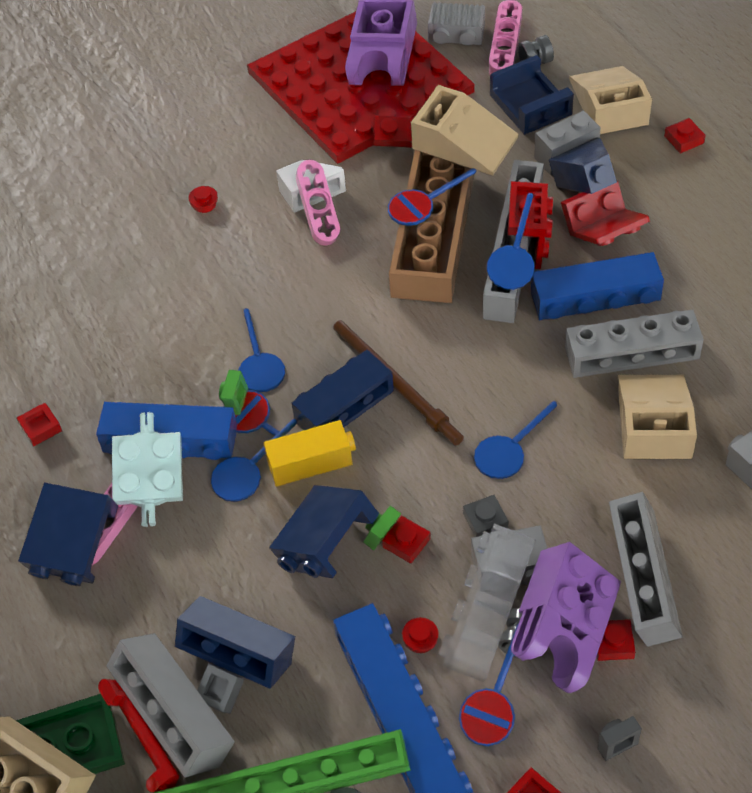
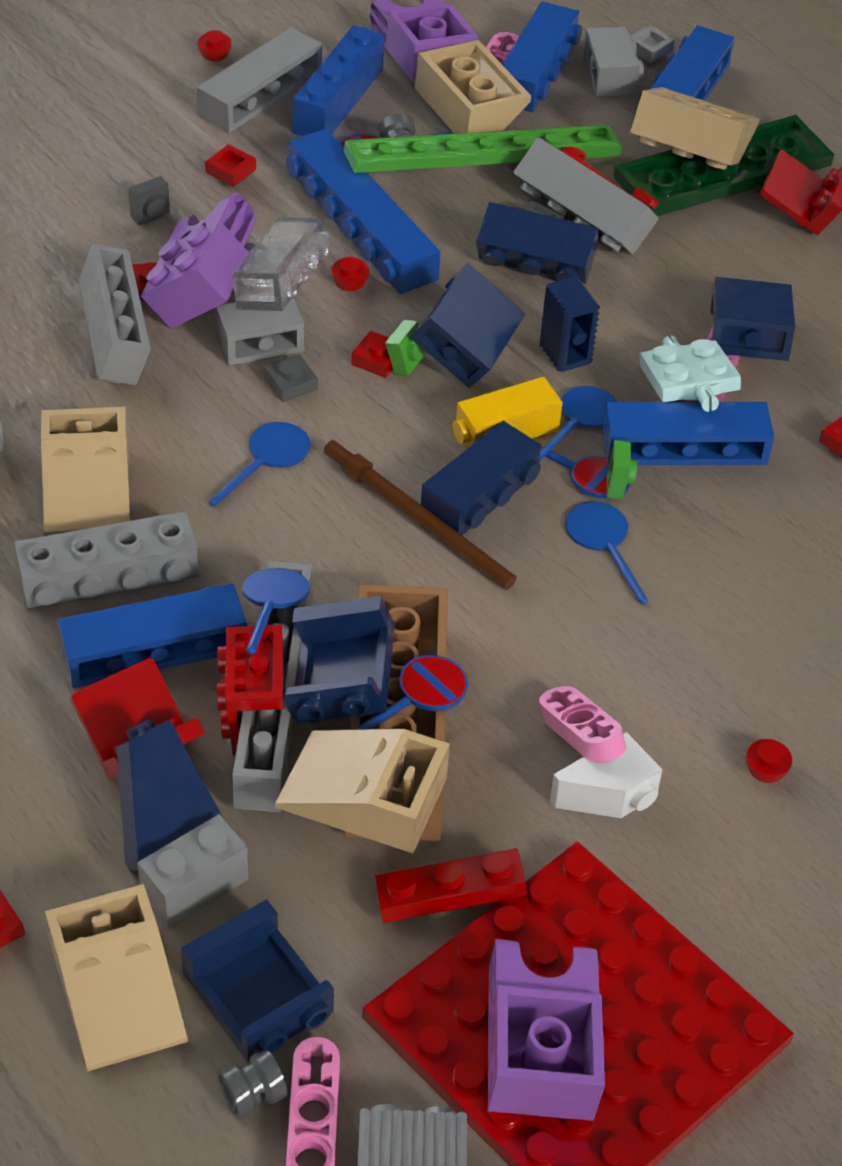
camera: 165 degrees right, 5 degrees down
(235, 523) = (569, 324): none -> dark blue brick
(470, 212) = (342, 660): none -> dark blue panel
(487, 713) = (268, 215): red piece -> none

